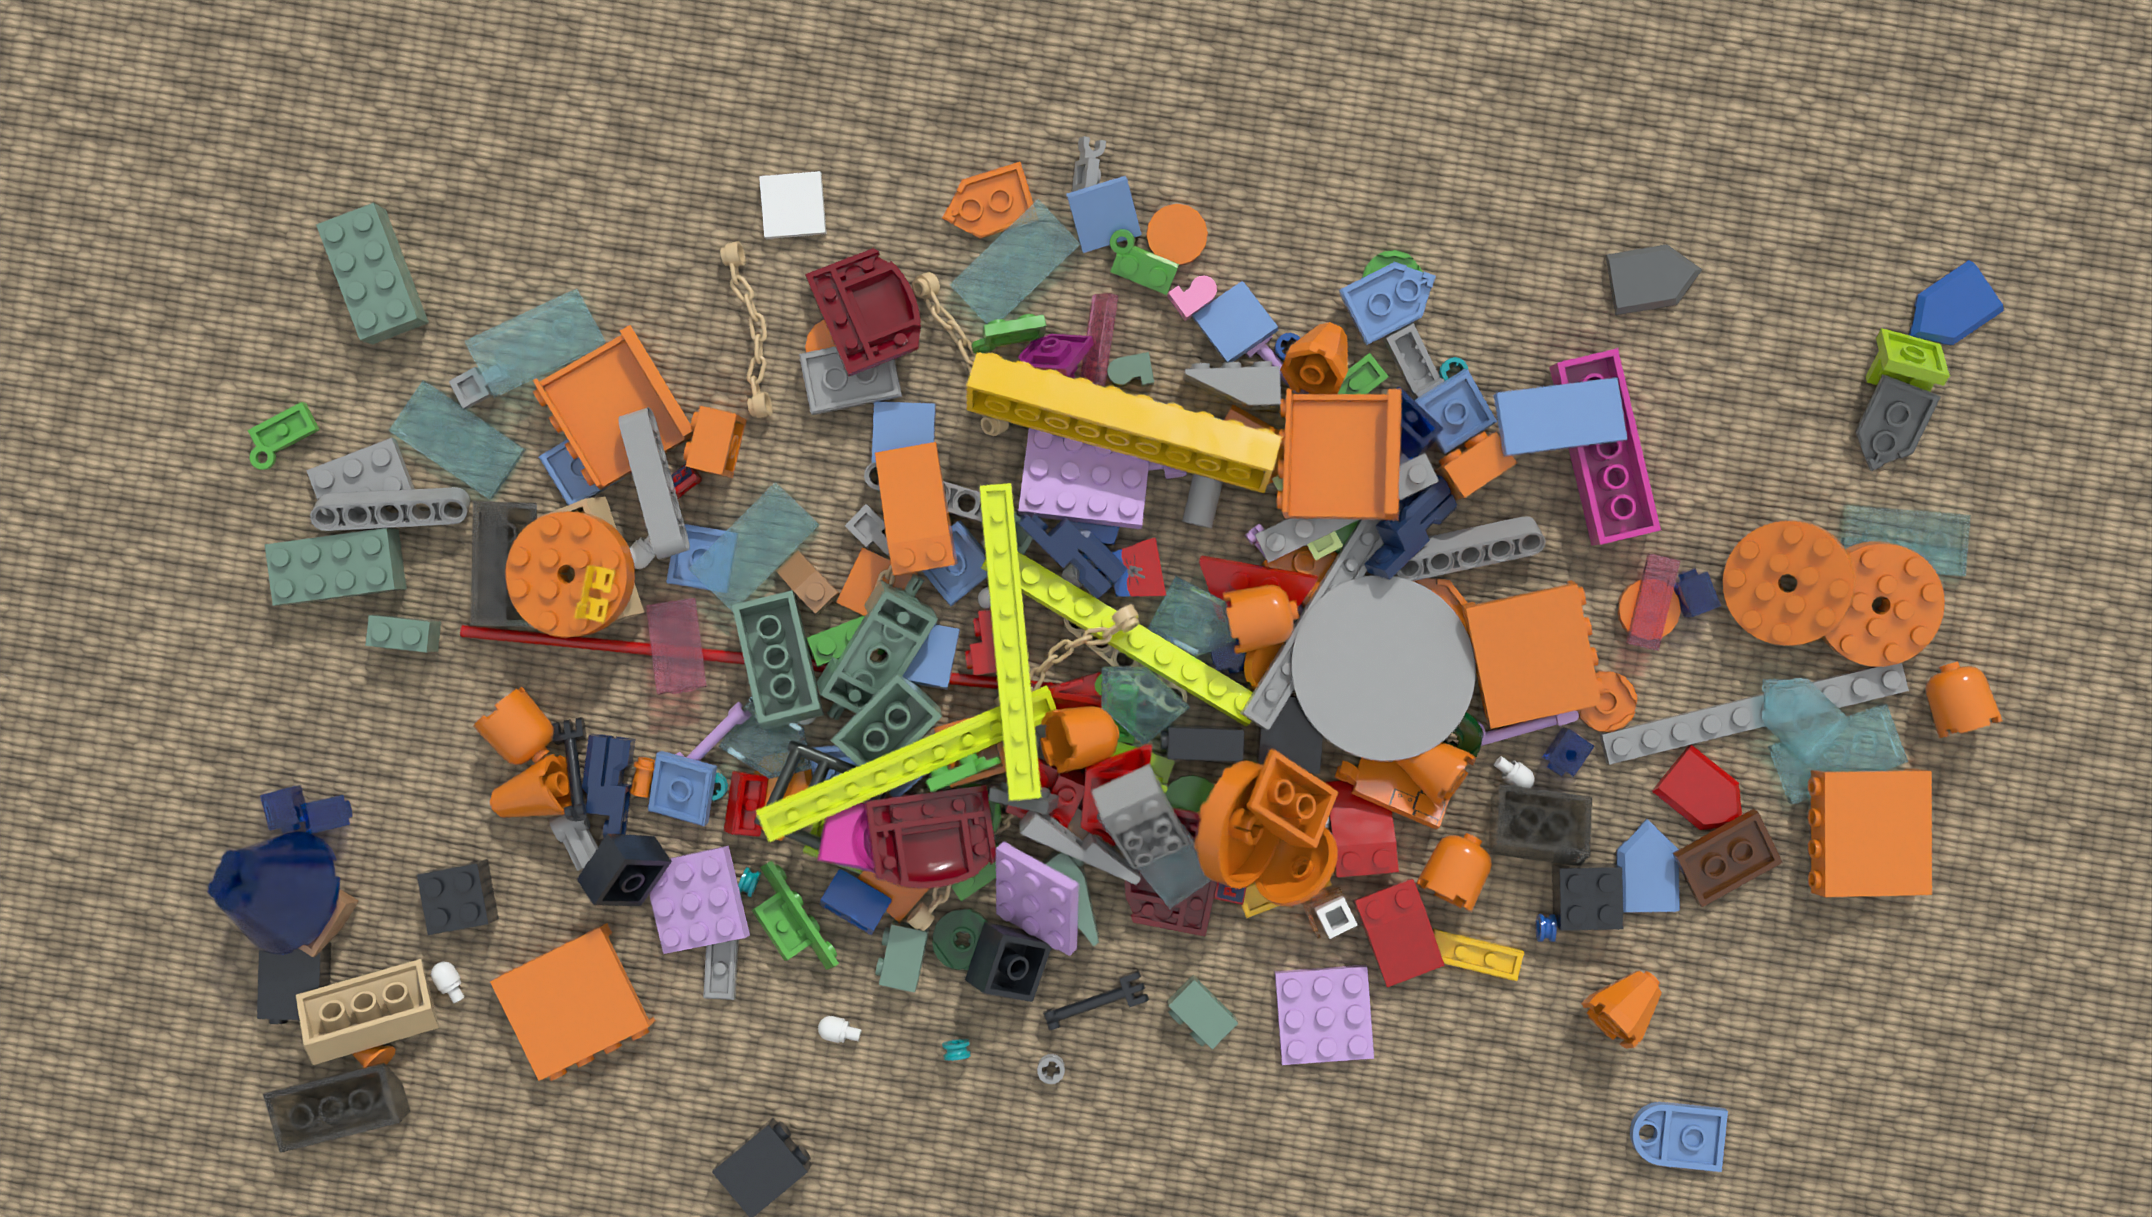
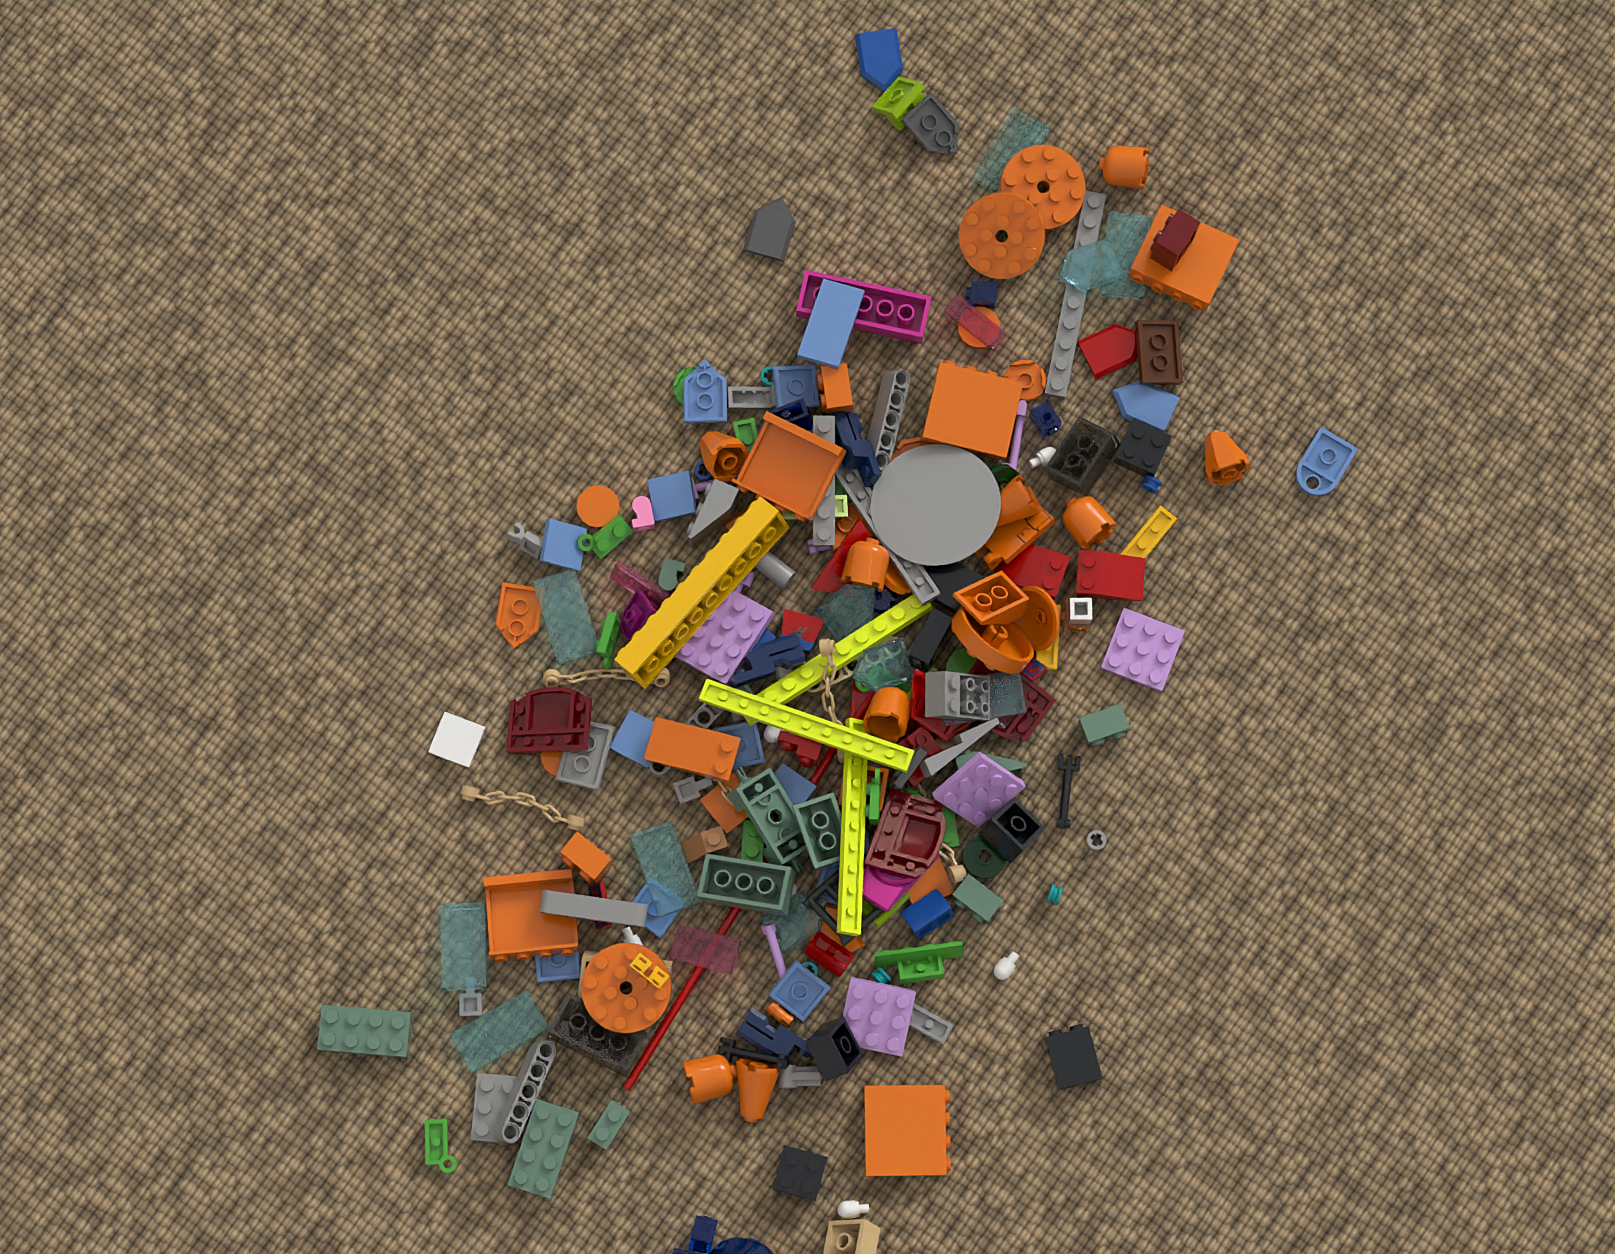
camera: 60 degrees left, 10 degrees down
(1894, 814) = (1174, 239): none -> dark red brick

